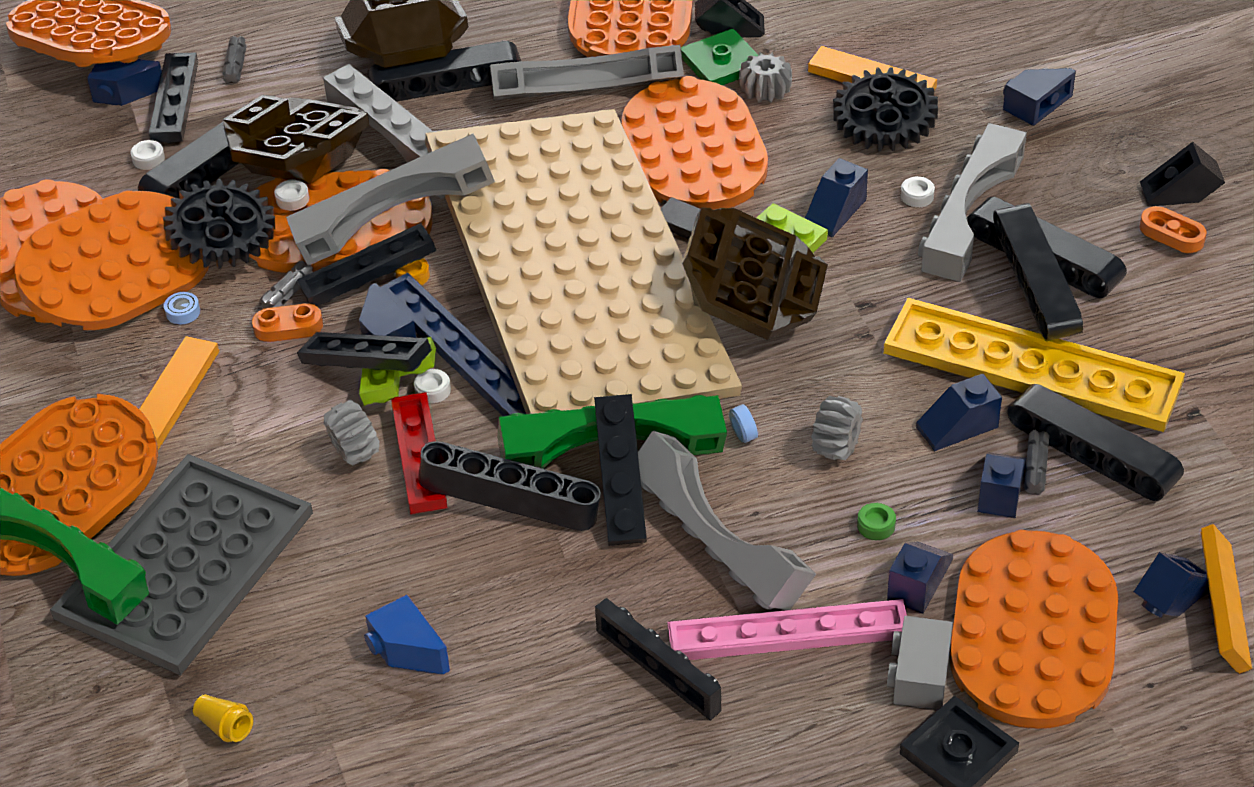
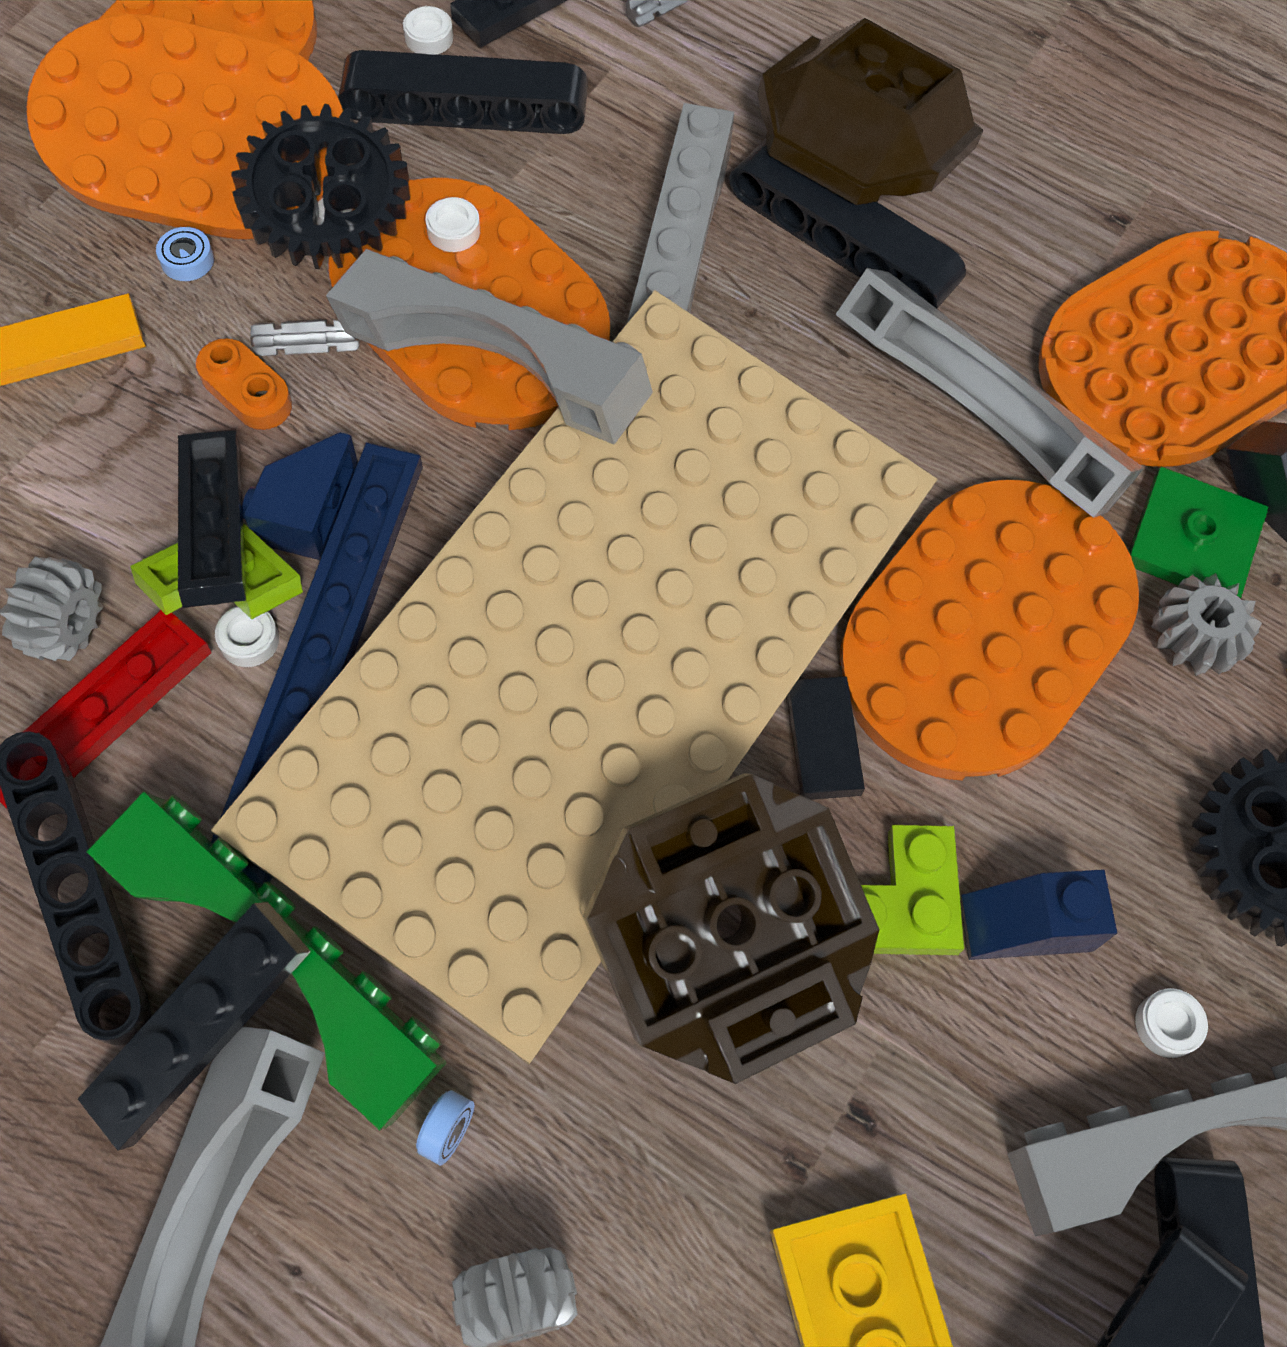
camera: 45 degrees right, 20 degrees up
(293, 136) = (541, 147): dark brown piece -> none
(366, 265) = (397, 399): black plate -> none
(418, 270) = (447, 456): light orange tile -> none

